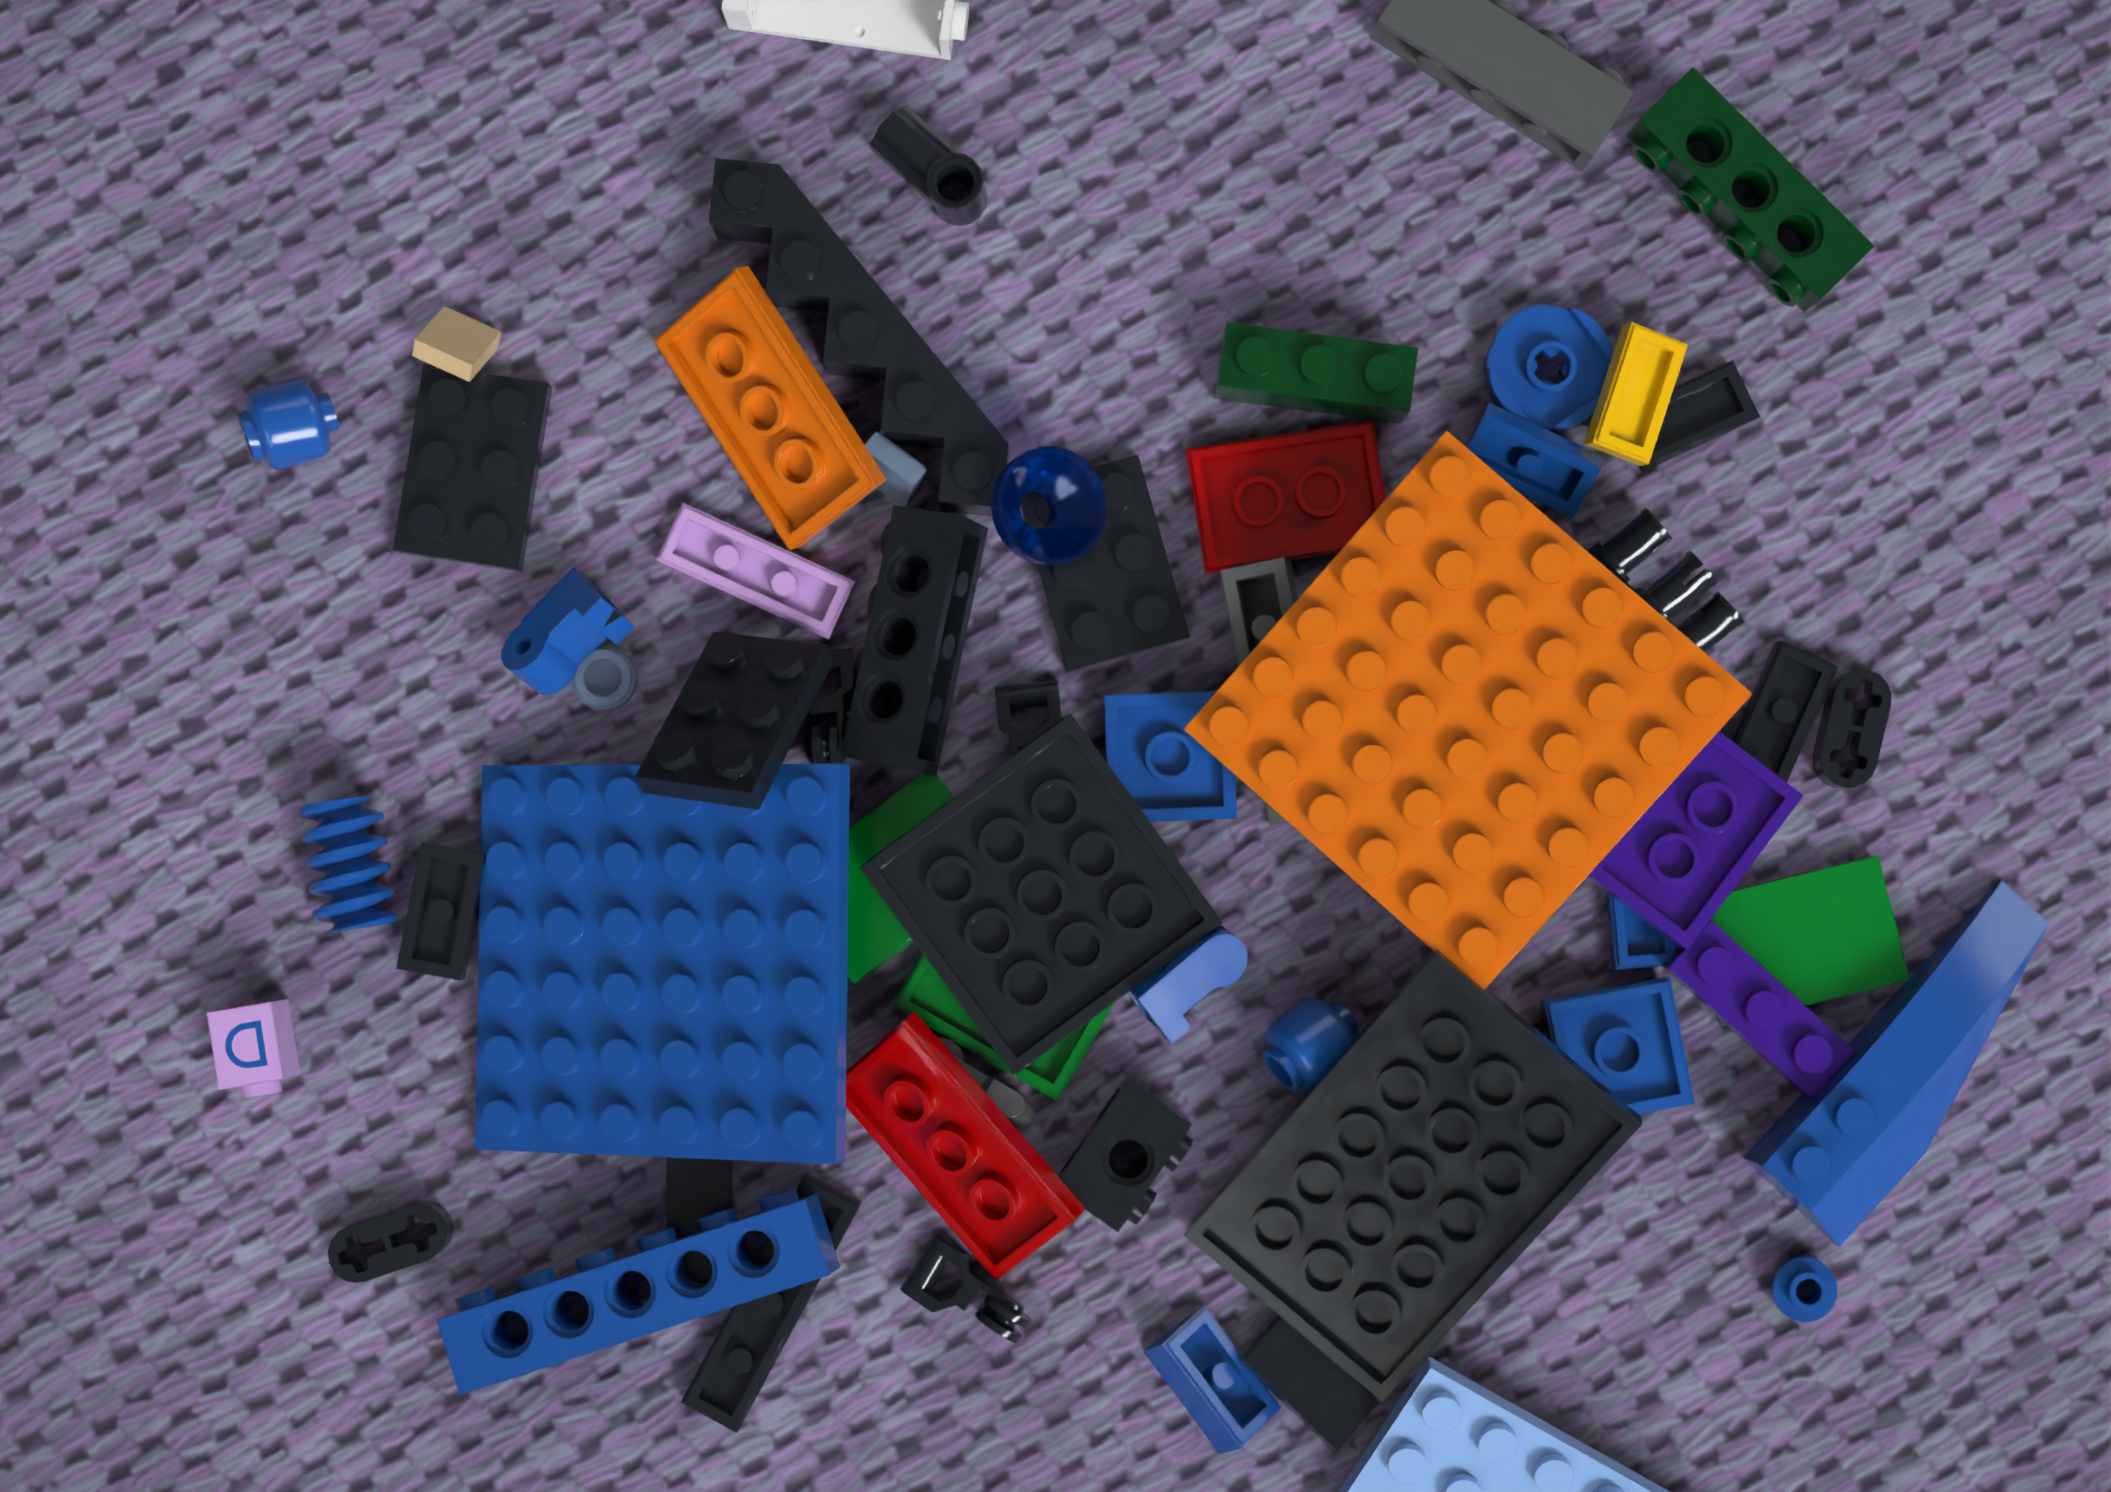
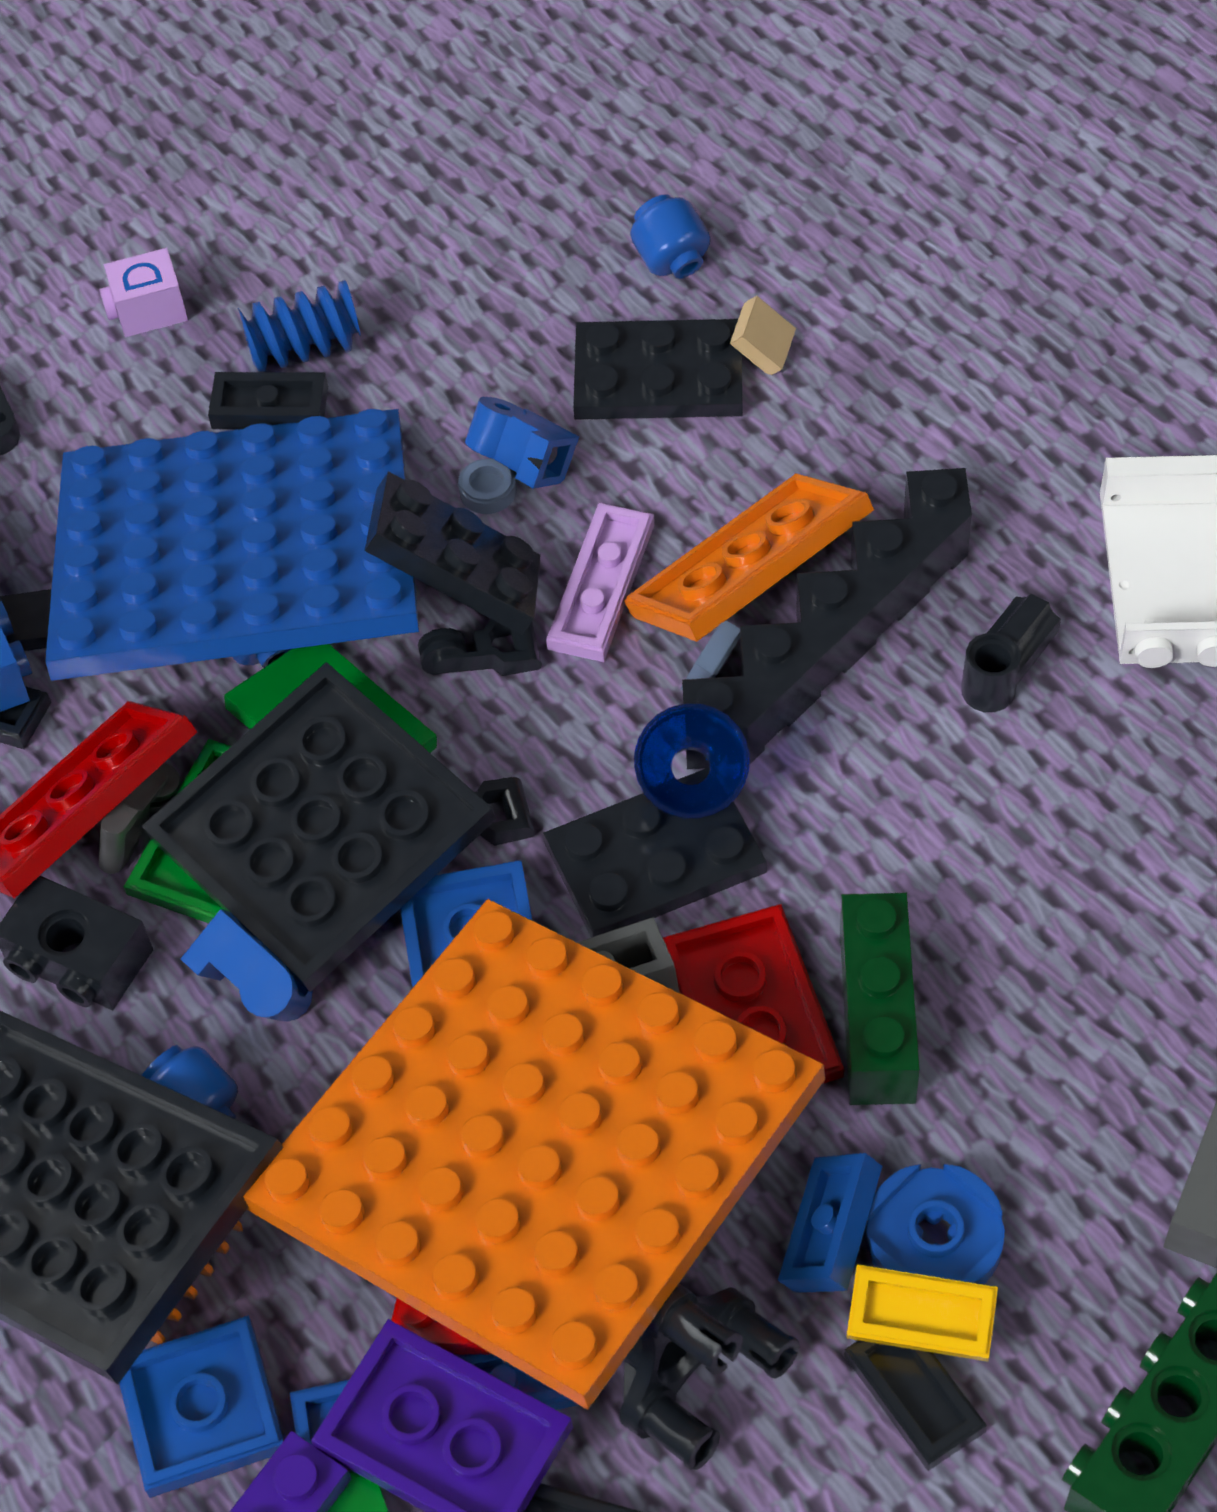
camera: 90 degrees right, 30 degrees down
(929, 670) = (545, 695): black brick -> none

